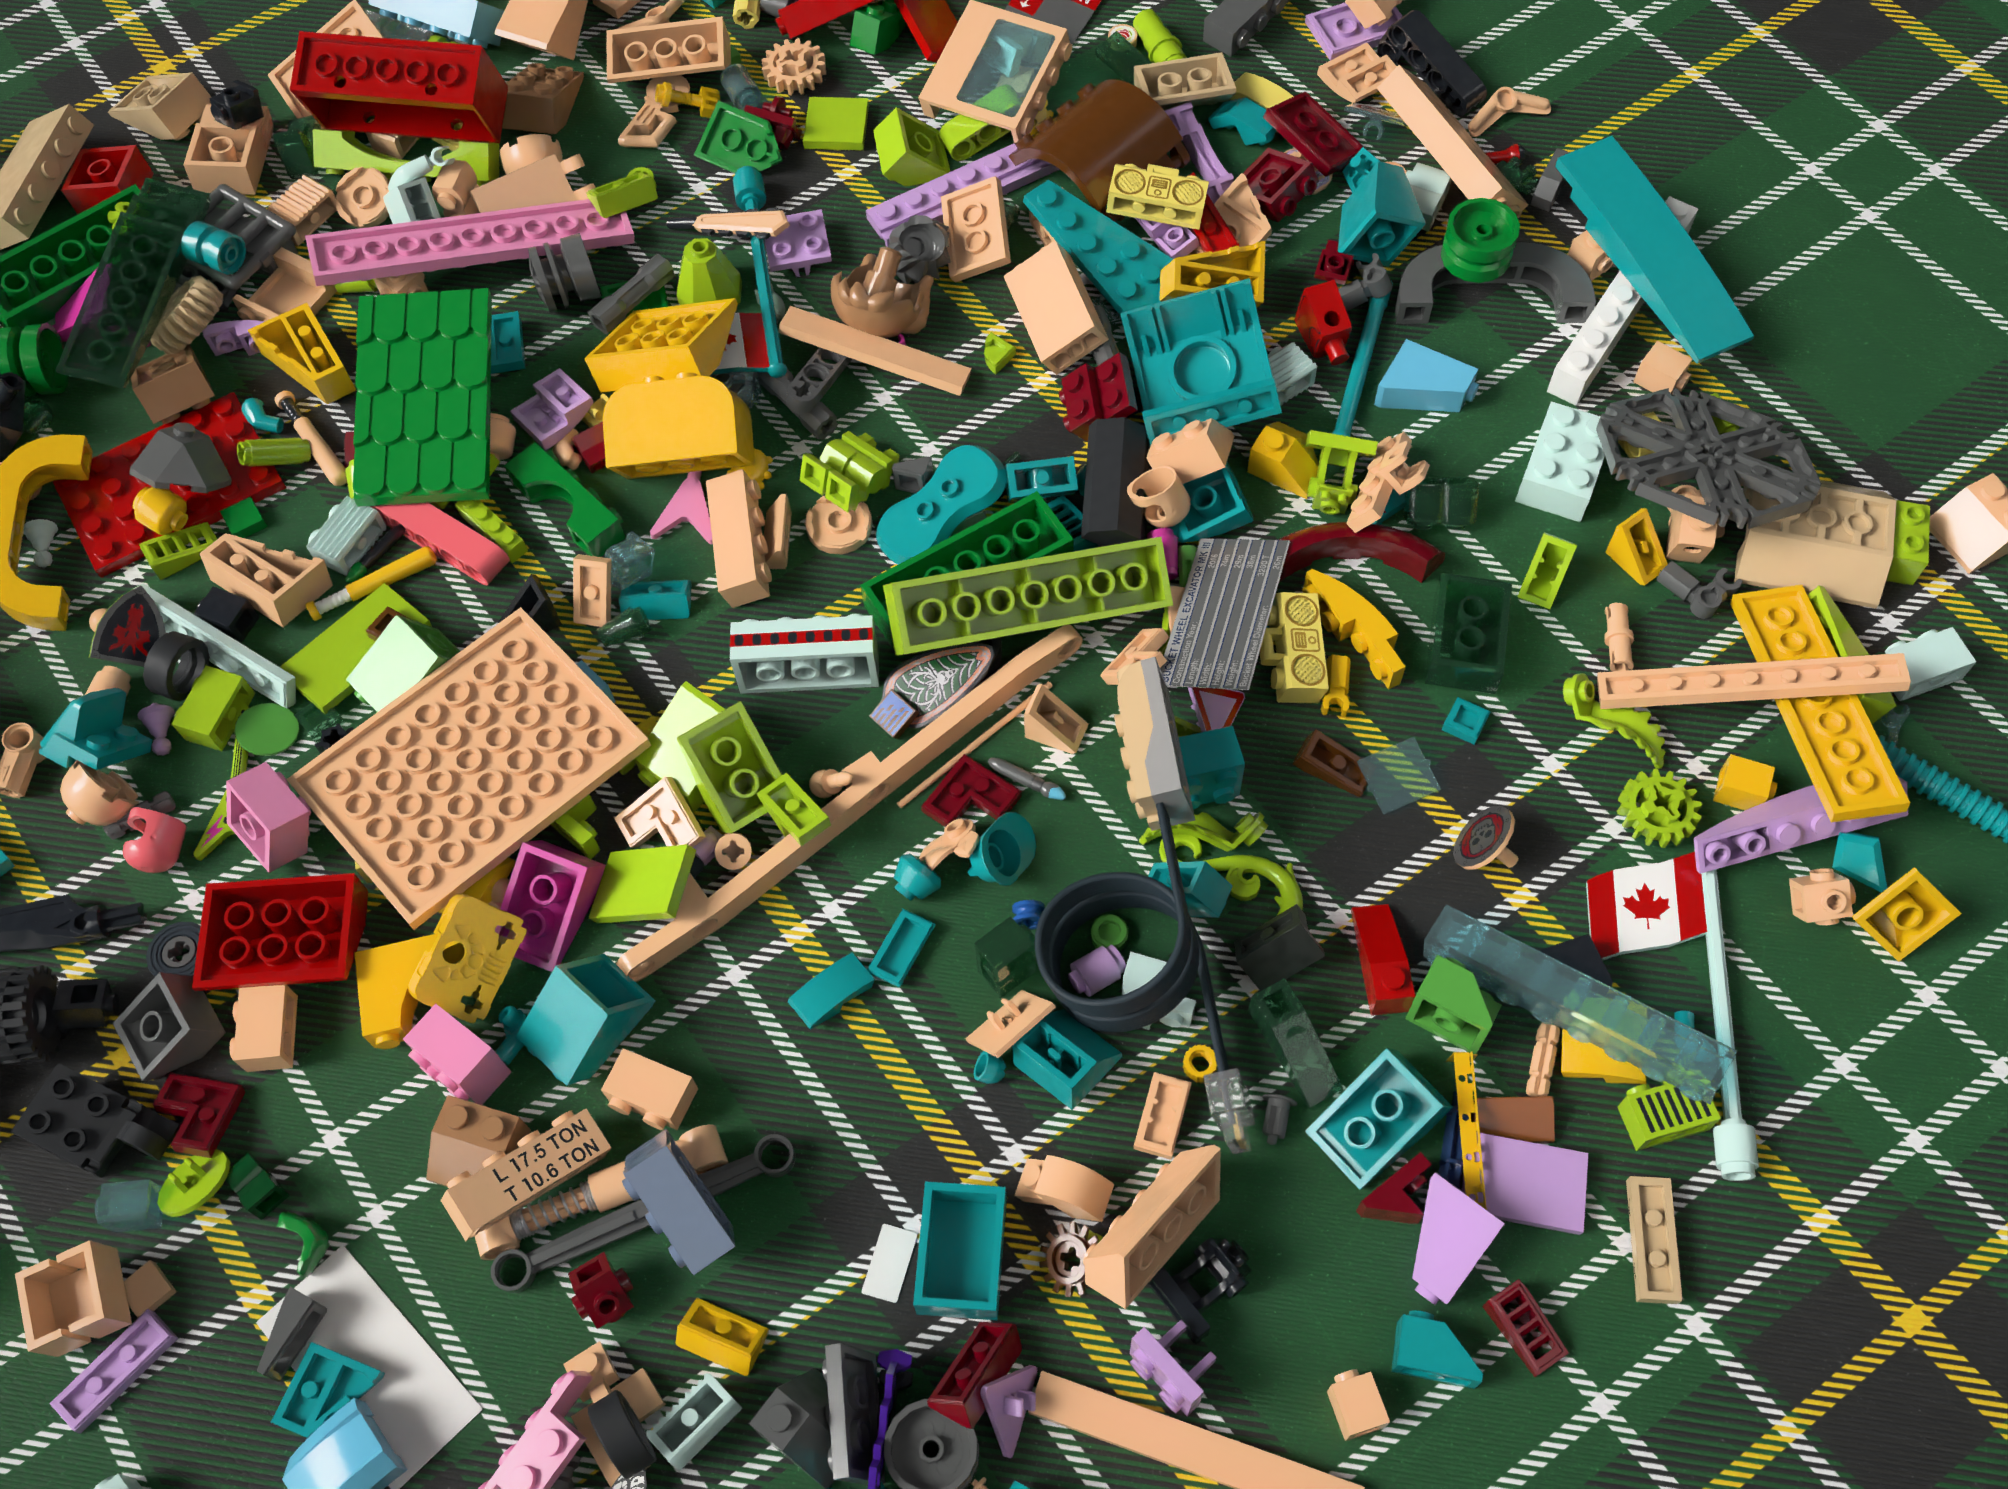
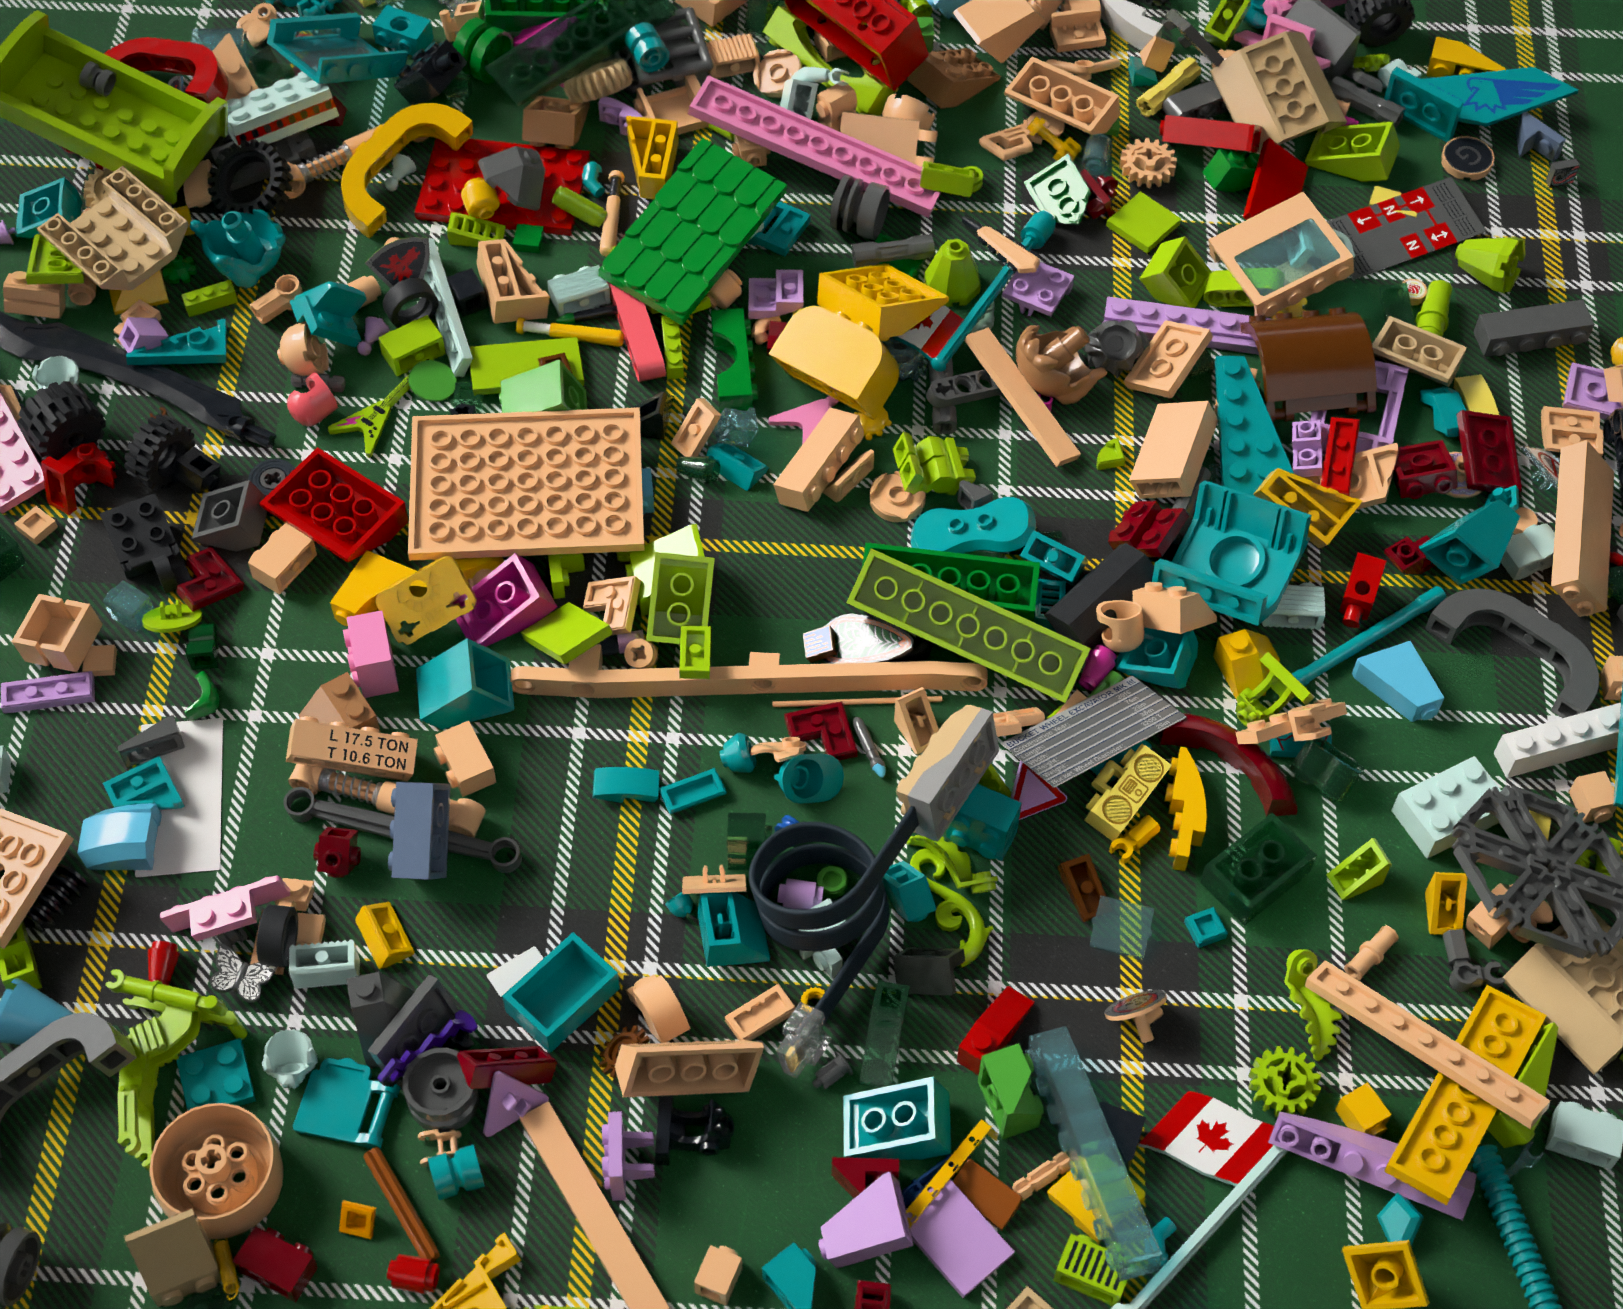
camera: 35 degrees right, 5 degrees down
(268, 816) = (385, 432): bright pink brick -> none
(512, 1021) = (409, 674): teal arm -> none
(804, 653) = (793, 563): light aqua brick -> none
(828, 782) = (737, 655): light nougat bar -> none
(1157, 195) = (1312, 417): light yellow piece -> none
(1374, 284) = (1427, 586): dark grey bar -> none
(1480, 240) = (1527, 606): green wheel -> none
(1822, 897) = (1330, 1227): light nougat brick -> none

